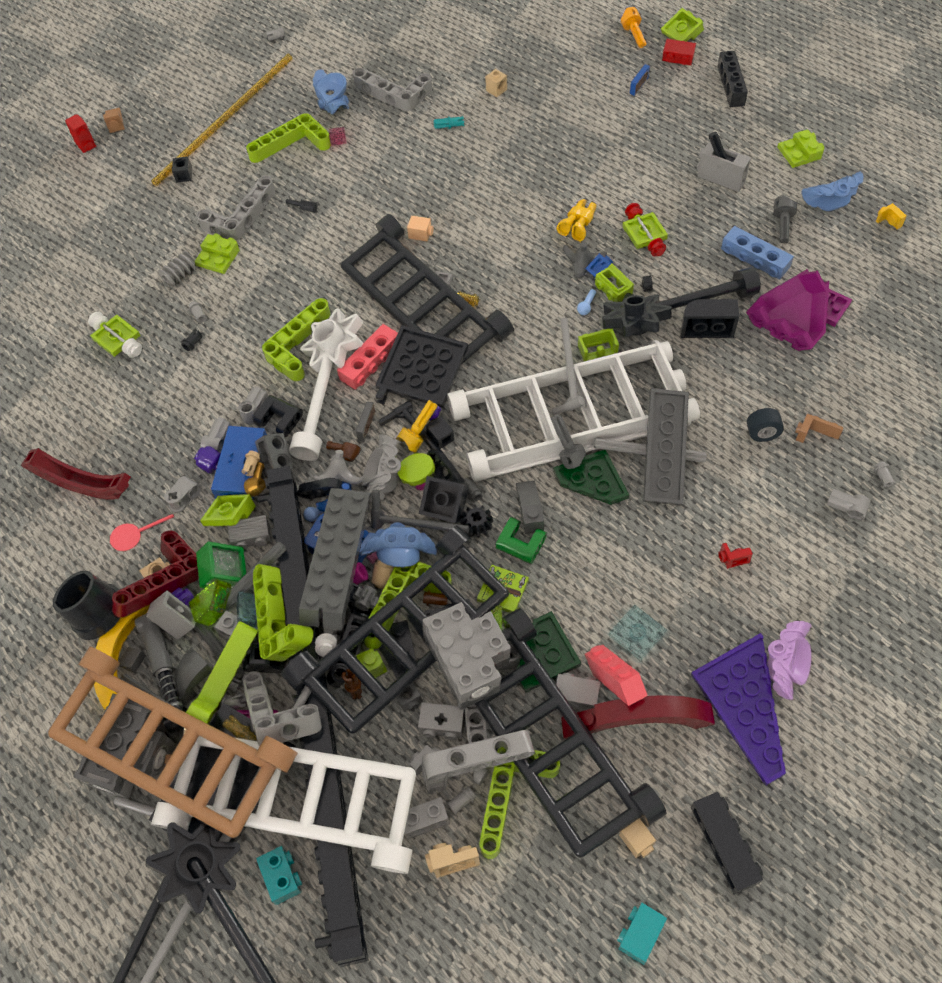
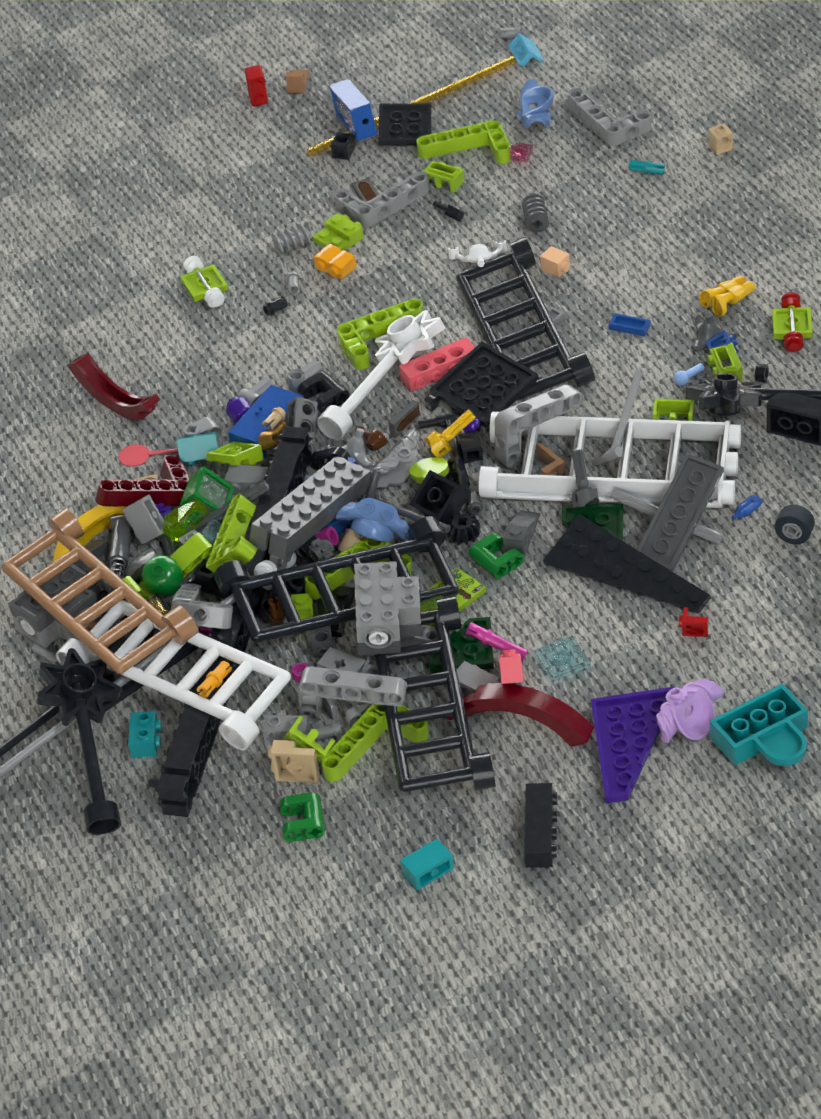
camera: 25 degrees right, 15 degrees down
(86, 604) = (75, 487): black piece -> none
(178, 134) = (353, 110): none -> blue brick
(186, 513) = (196, 446): none -> teal brick
(220, 681) = (162, 575): none -> green cylinder
(221, 205) = (364, 189): none -> tile
(226, 135) = (403, 123): none -> black plate
(226, 281) = (335, 261): none -> light orange brick
(283, 171) = (442, 172): none -> lime window
(294, 46) = (524, 50): none -> medium azure panel
(337, 803) = (214, 679): none -> light orange pin
(350, 239) = (478, 253): none -> white piece
(379, 187) = (535, 212): none -> dark grey piece
(401, 729) = (296, 669): none -> dark pink axle
(459, 833) = (307, 741): none -> lime window
(471, 299) = (570, 341): clear yellow pin -> none
(486, 392) = (527, 414): none -> light grey beam
(498, 915) = (312, 821): none -> green connector
(511, 269) = (629, 324): none -> blue tile
(525, 426) = (555, 464): none -> medium nougat bracket
(577, 639) = (494, 640): none -> dark pink pin
(617, 511) = (604, 557): none -> black wing
(638, 839) = (464, 800): tan brick -> none
(708, 417) = (747, 507): none -> blue piece
(868, 650) = (763, 725): none -> teal brick

